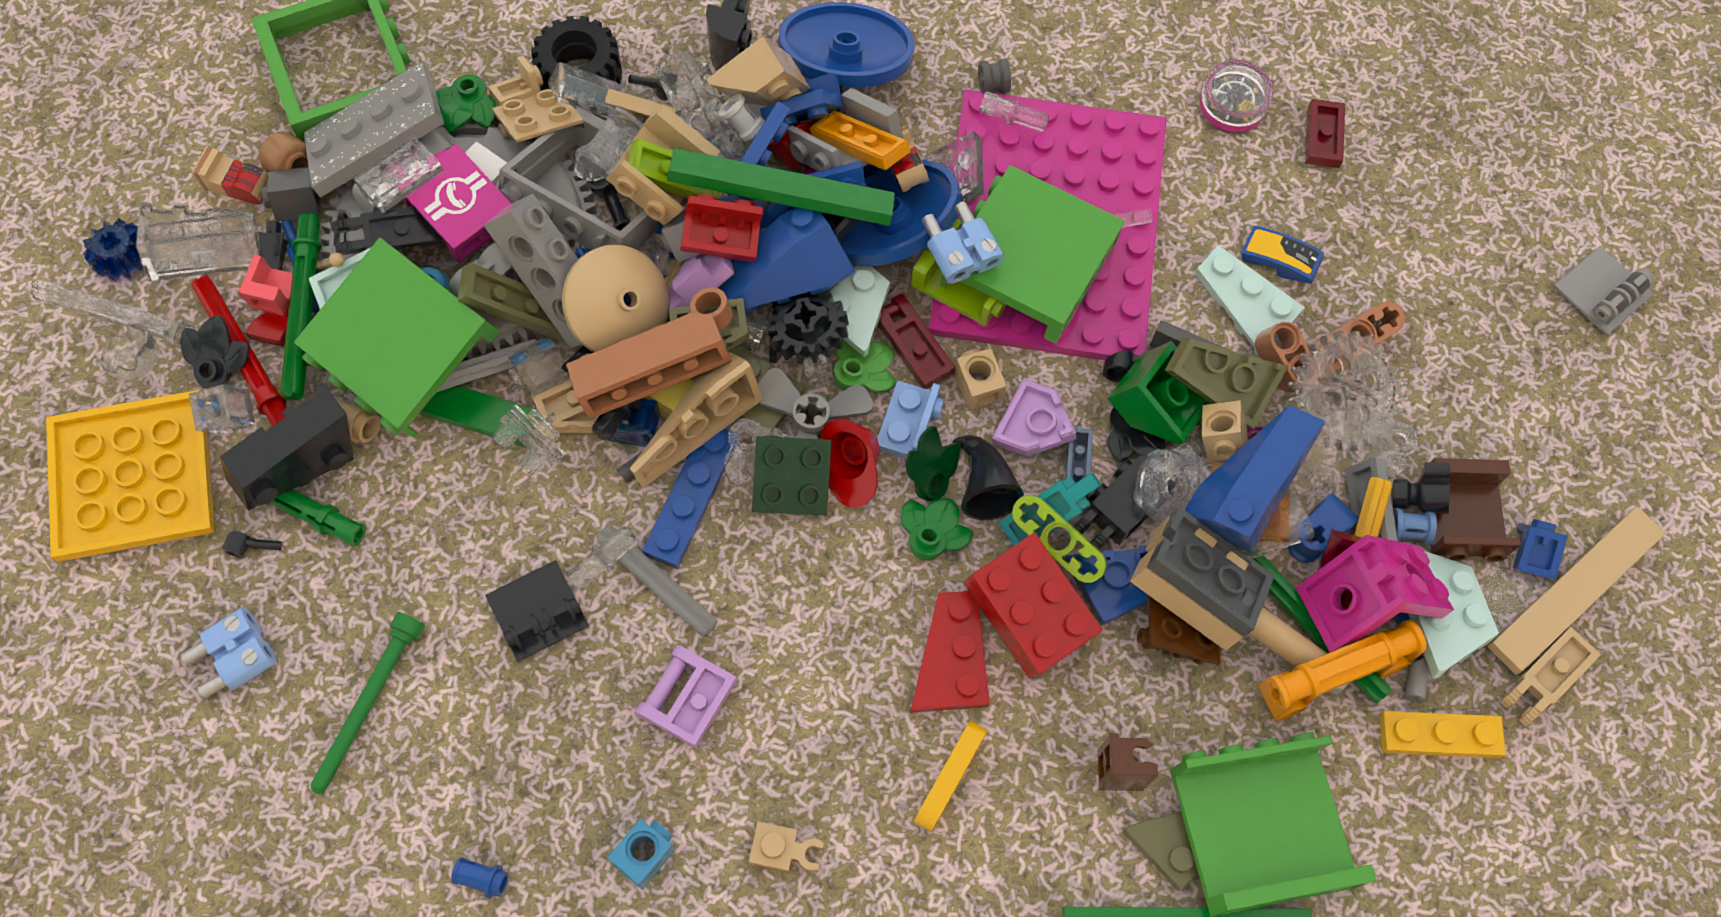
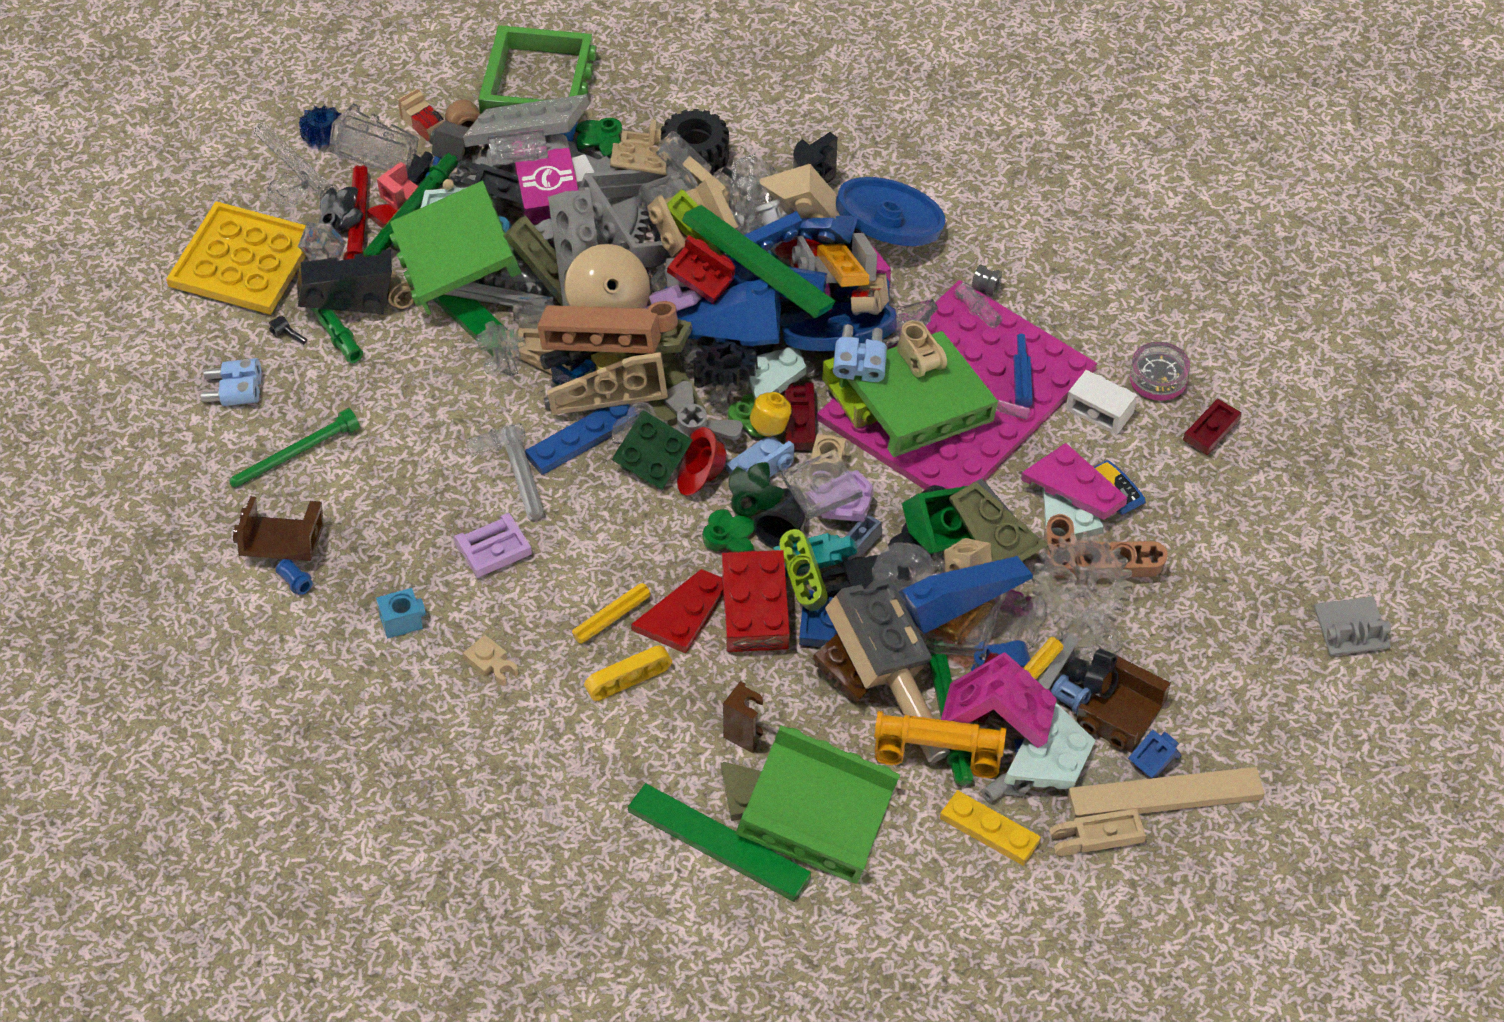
camera: 35 degrees right, 15 degrees down
(424, 833) = (278, 536): none -> reddish brown panel
(536, 611) = (434, 452): black hinge -> none
(877, 707) = (611, 613): none -> yellow axle
(892, 361) = (770, 414): none -> yellow head
(1008, 420) = (821, 484): none -> clear tile
(1013, 204) = (920, 349): none -> tan piece
(1113, 171) = (1022, 374): none -> blue axle
(1204, 161) = (1101, 402): none -> white brick
(1247, 269) = (1074, 478): none -> dark pink wing

